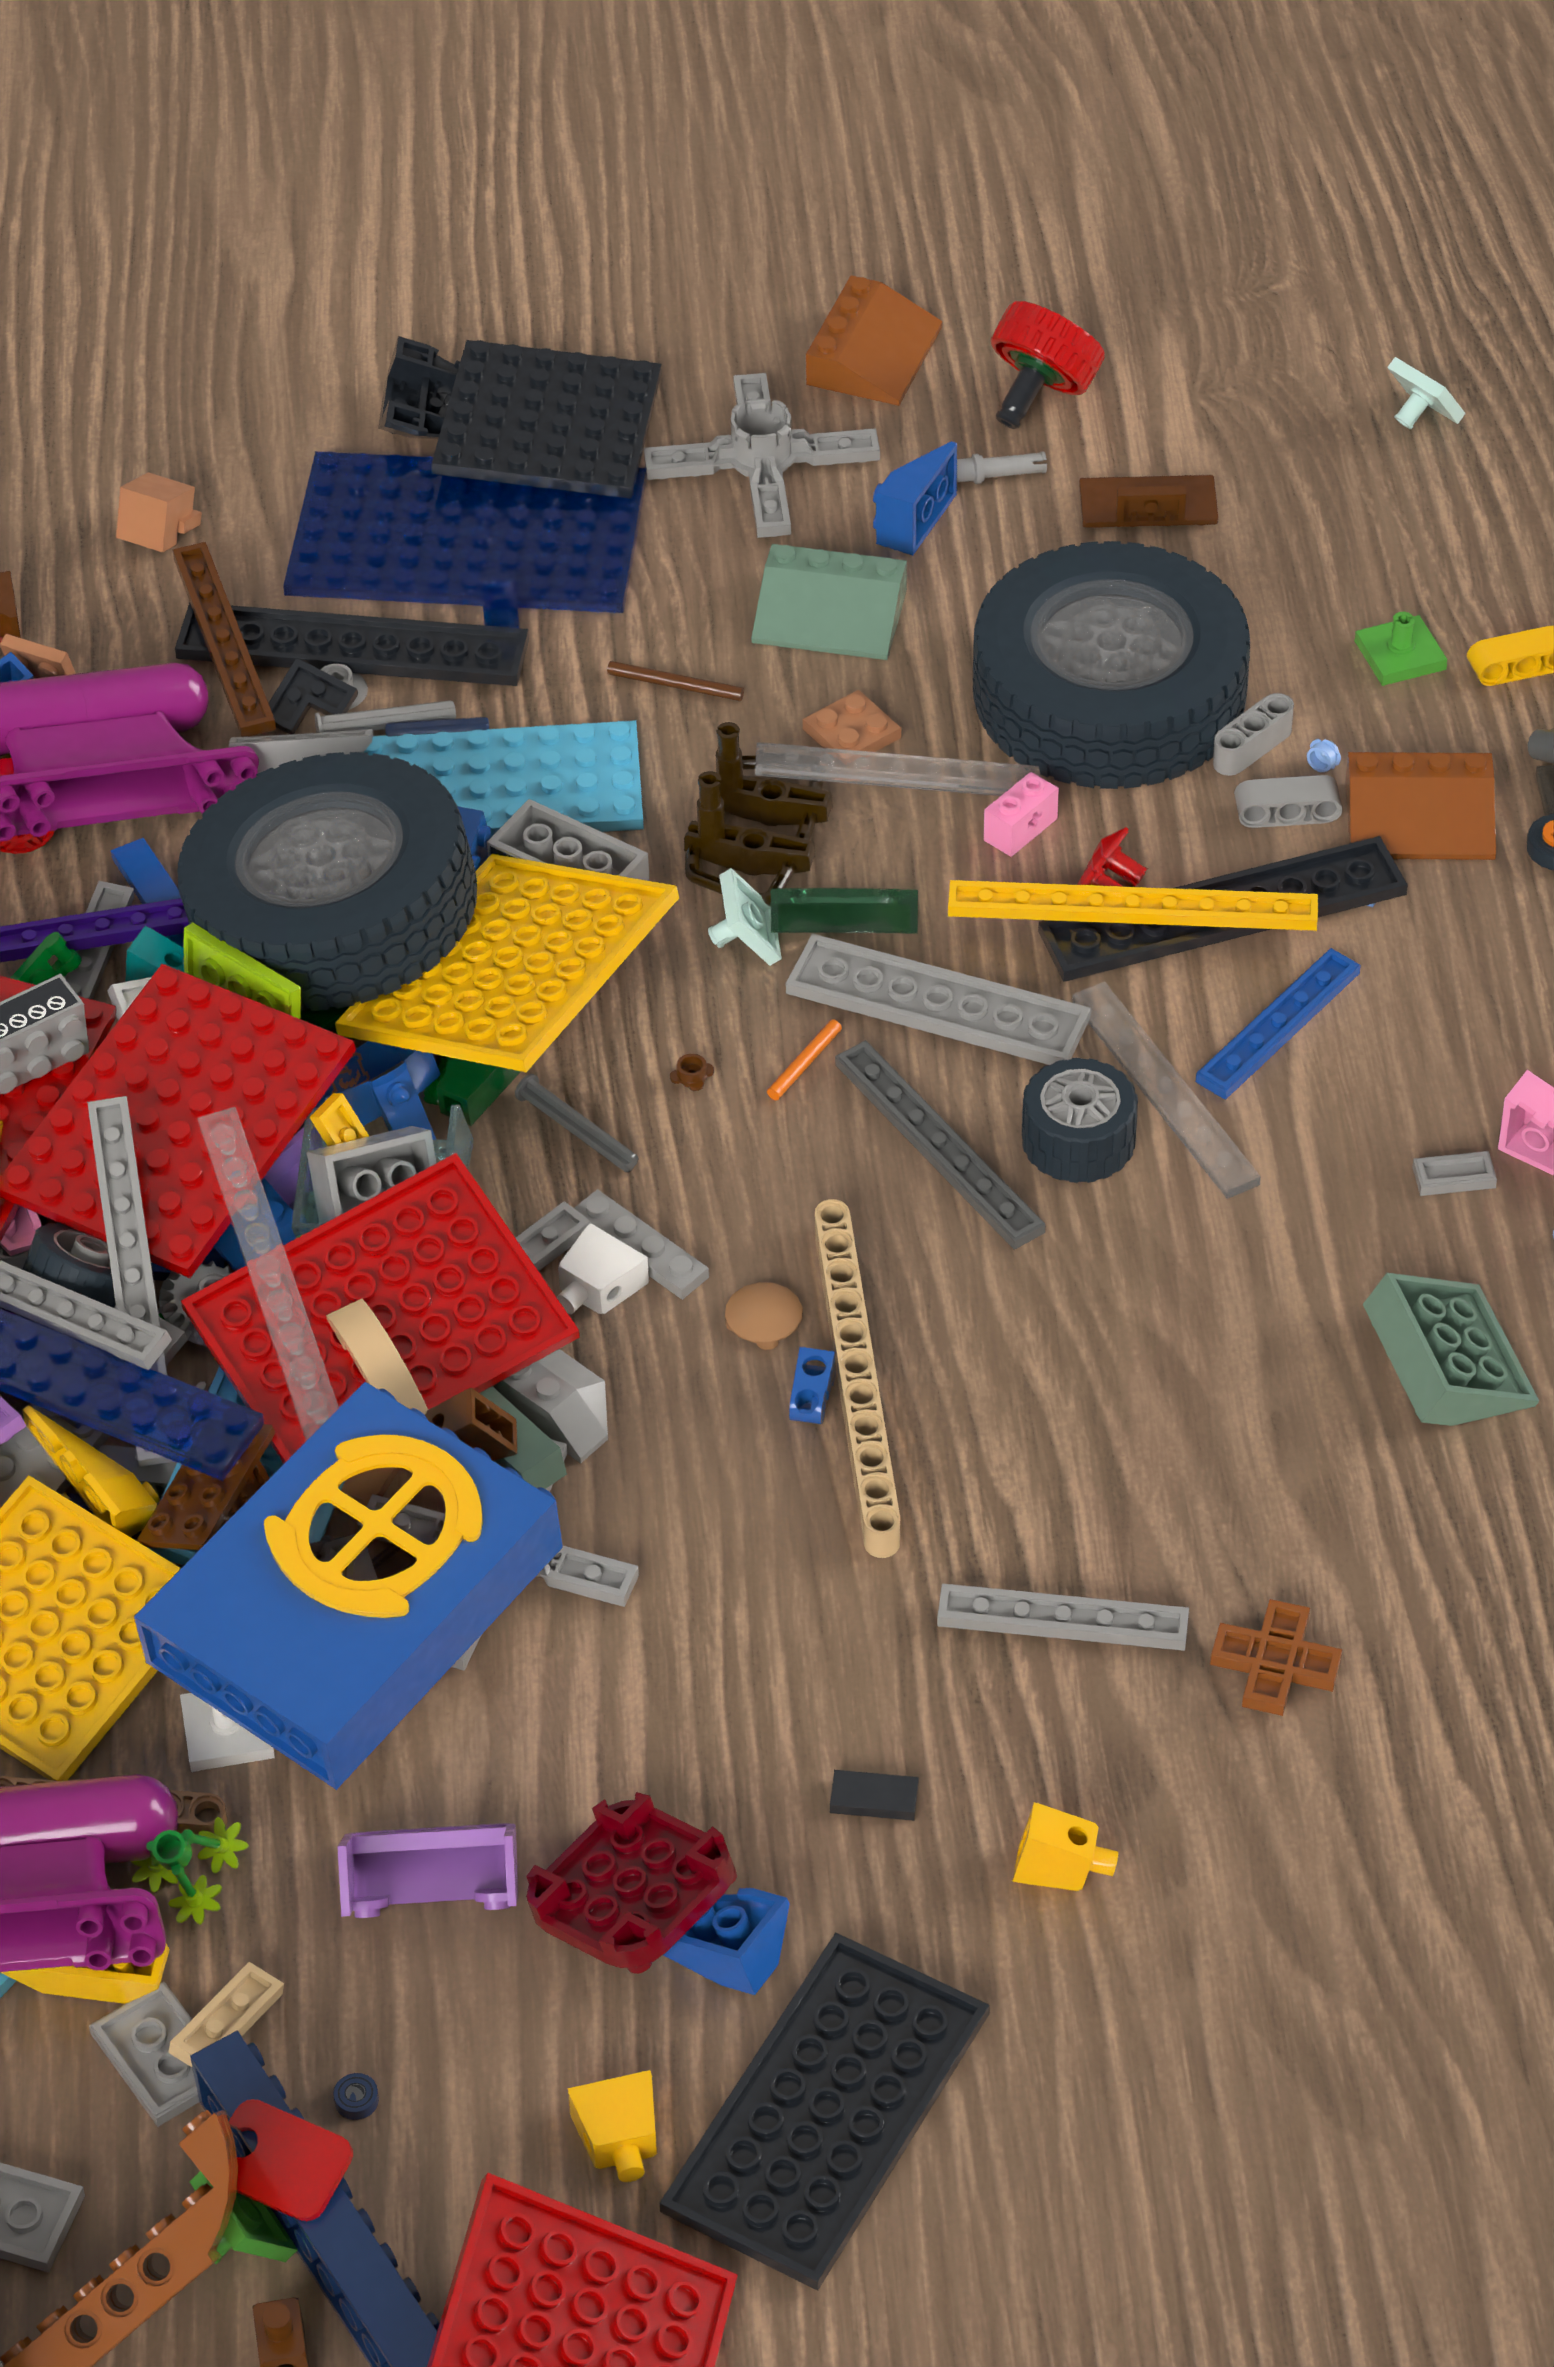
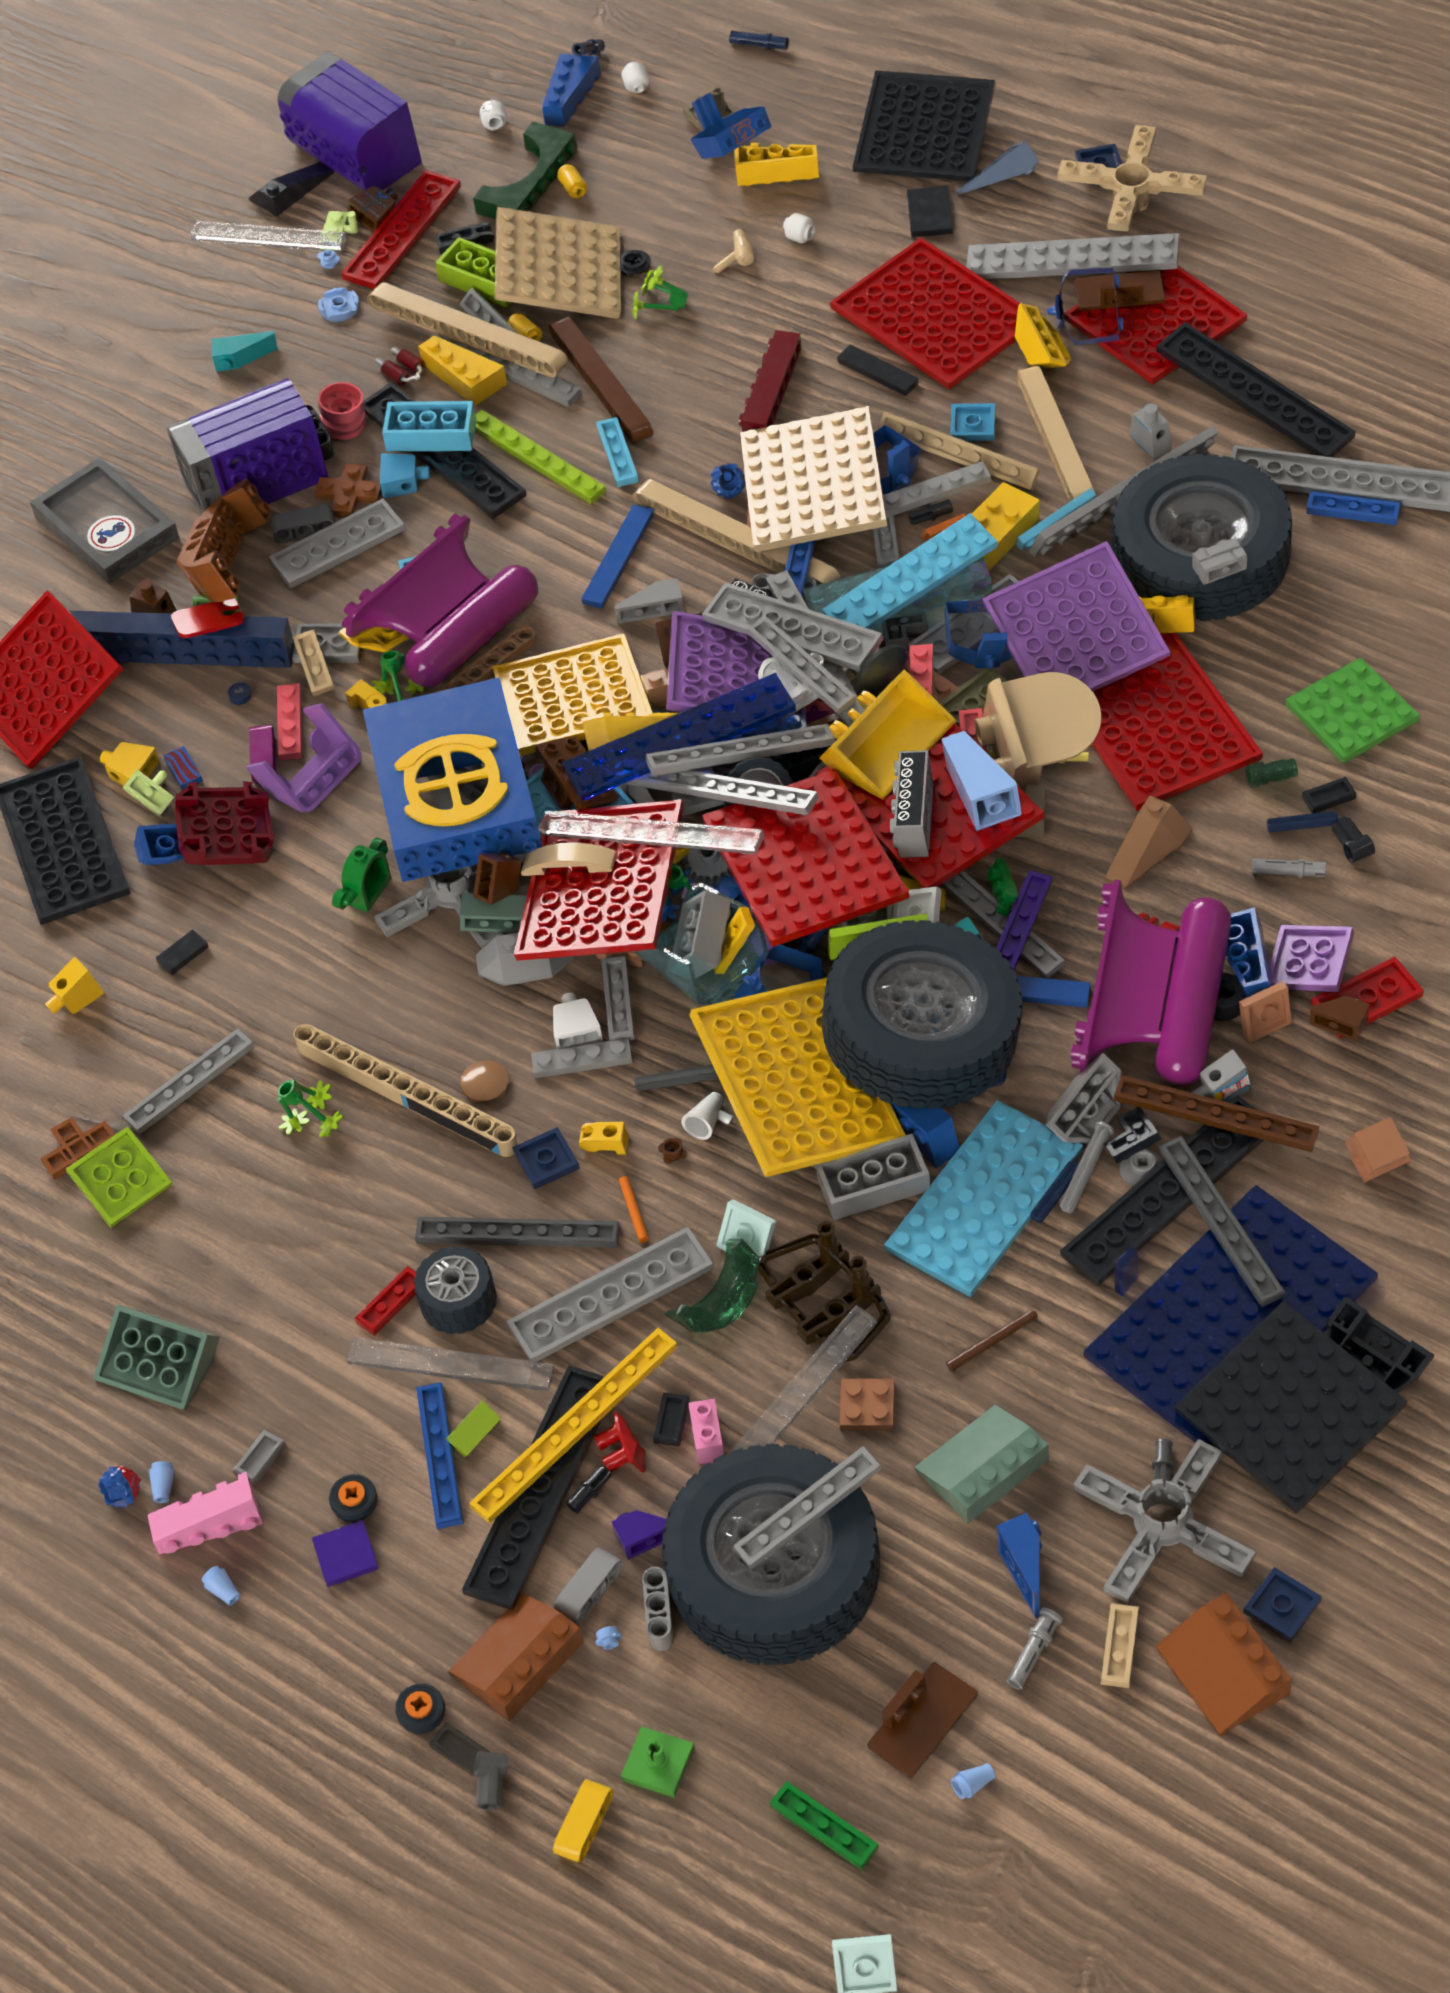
camera: 135 degrees right, 5 degrees up
(164, 644) = (1224, 1079): none -> light grey torso
(240, 1889) = (364, 696): none -> yellow leg
(357, 1985) = (289, 721): none -> coral plate
(361, 575) = (1222, 1222): none -> dark grey tile
(450, 1960) = (262, 746): none -> magenta beam
(559, 2058) = (182, 767): none -> tile
(574, 1635) = (363, 876): none -> green piece
(615, 1066) = (702, 1118): none -> white piece
(650, 2040) = (149, 791): none -> yellowish green plate
(698, 486) = (1162, 1464): none -> dark grey axle
(737, 1135) = (604, 1136): none -> yellow leg
(768, 340) = (1282, 1604): none -> dark blue plate
(812, 1385) = (417, 1065): blue leg -> none
(816, 1172) = (545, 1158): none -> dark blue plate
(927, 416) = (1119, 1645): none -> tan plate
(993, 1430) = (291, 1094): none -> plant
(1032, 863) = (671, 1419): none -> black tile
(1046, 353) = (1095, 1731): red wheel -> none
(1053, 610) = (807, 1507): none -> light grey plate
(1144, 1195) = (388, 1302): none -> red tile
(1171, 435) = (970, 1781): none -> light blue cone
(1182, 872) = (588, 1489): none -> black axle
(1188, 796) = (638, 1532): none -> dark purple slope
(1221, 1006) = (473, 1428): none -> lime tile
(1273, 1566) = (119, 1177): none -> lime plate
(1327, 502) = (824, 1825): none -> green plate
(1409, 1051) = (356, 1507): none -> black wheel
(1473, 1020) = (345, 1553): none -> dark purple tile

